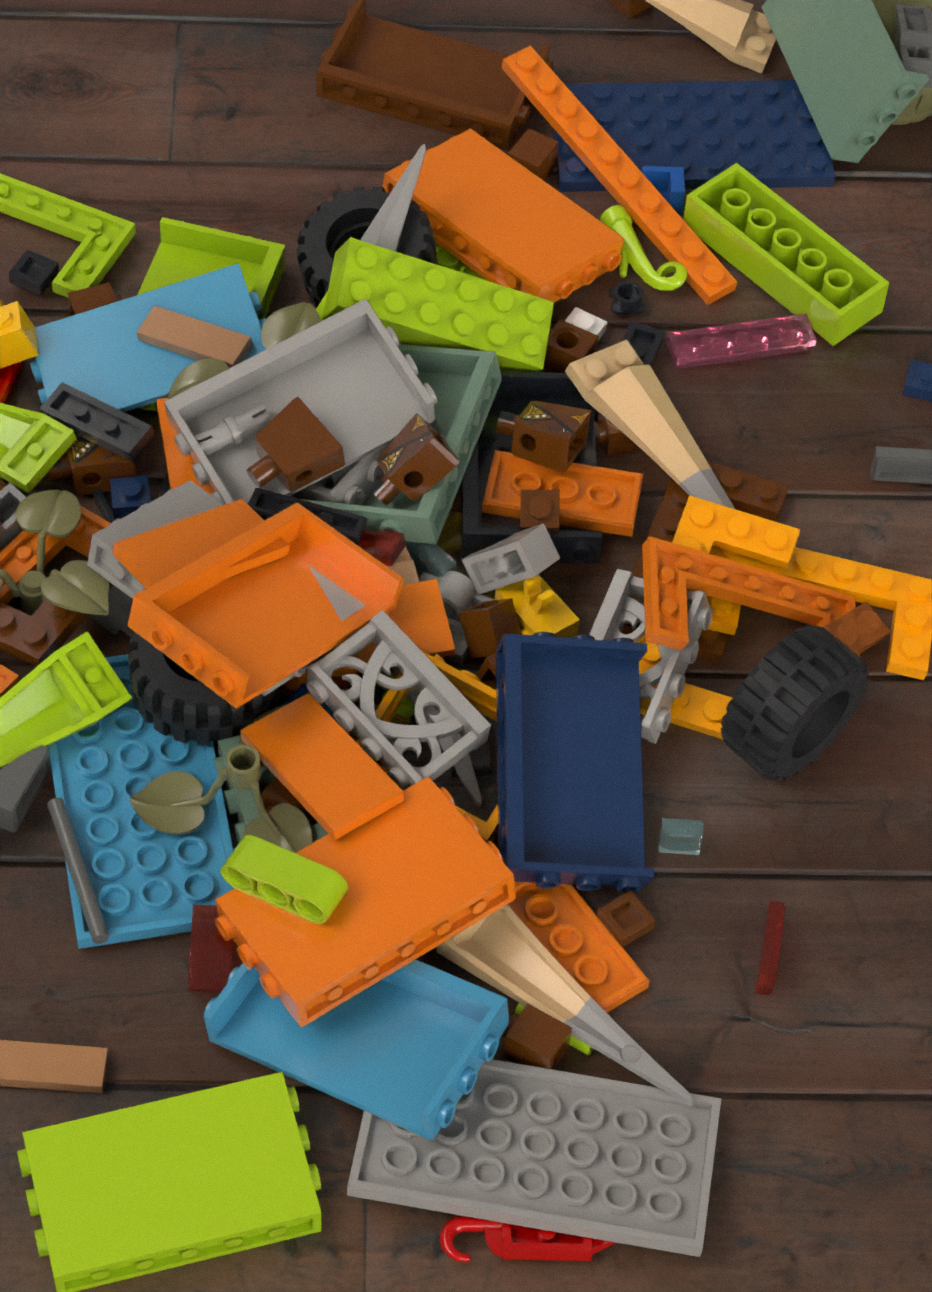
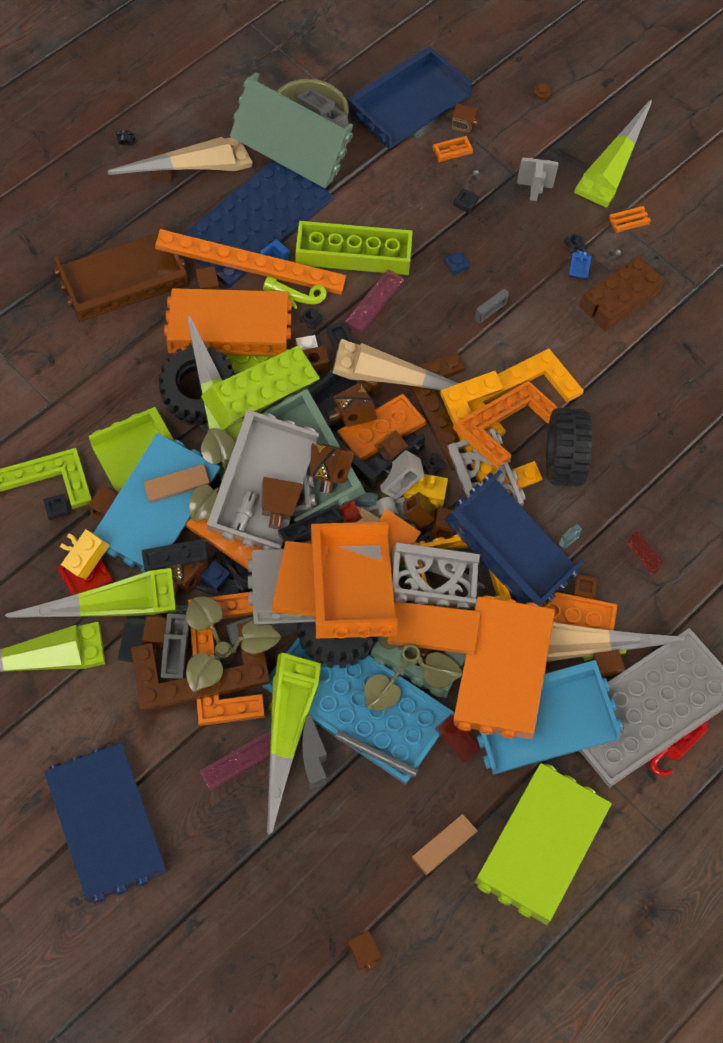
camera: 45 degrees left, 10 degrees up
(284, 879) = (476, 688): lime beam -> none
(583, 603) = (432, 469): none -> black plate
(859, 628) = (545, 397): dark orange plate -> none

